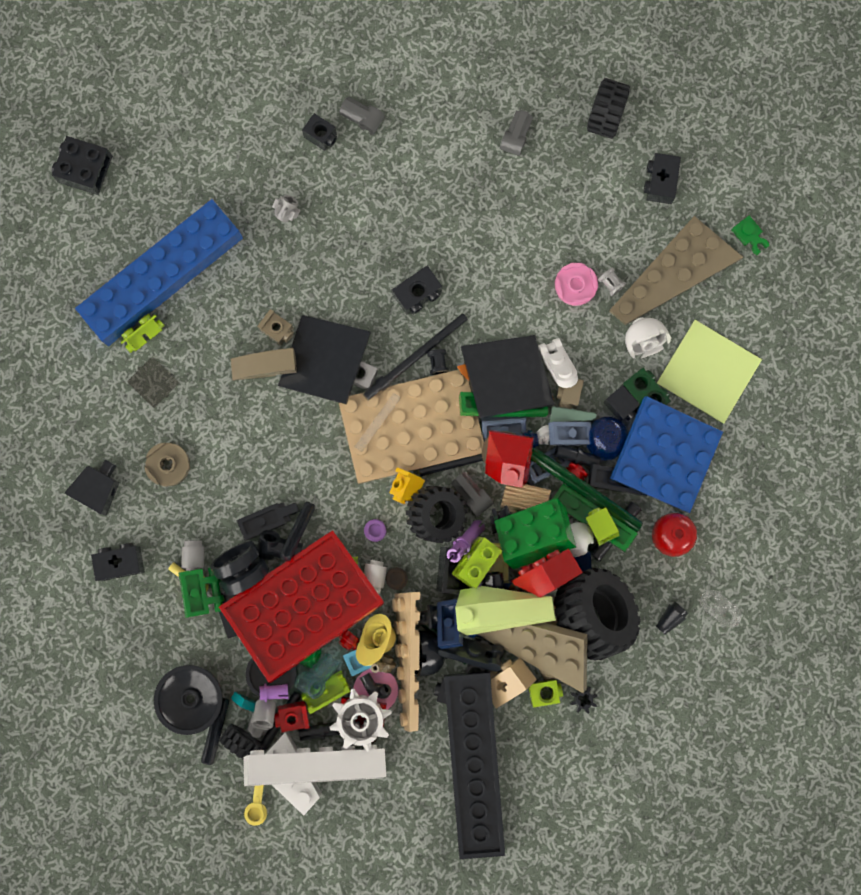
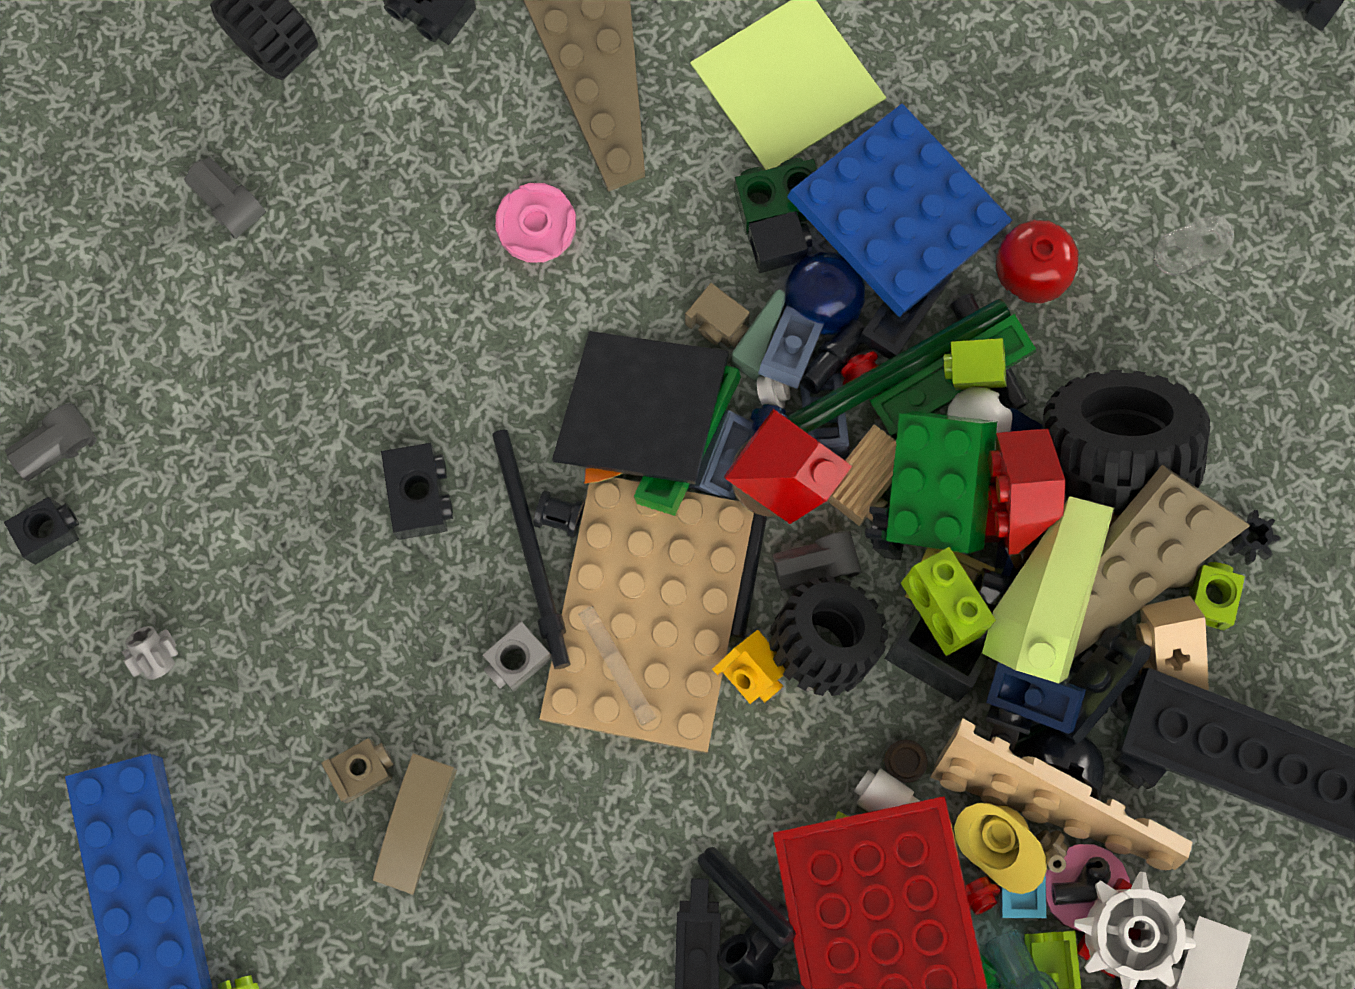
camera: 65 degrees left, 5 degrees down
(326, 359) = (459, 705): black piece -> none
(375, 530) = (804, 760): medium lavender tile -> none
(463, 544) = (903, 609): medium lavender pin -> none
(559, 363) = (662, 310): white plate -> none
(610, 276) = (572, 152): light grey bush -> none
(649, 334) = (683, 142): white cylinder -> none
(671, 618) = (1175, 330): black cone -> none

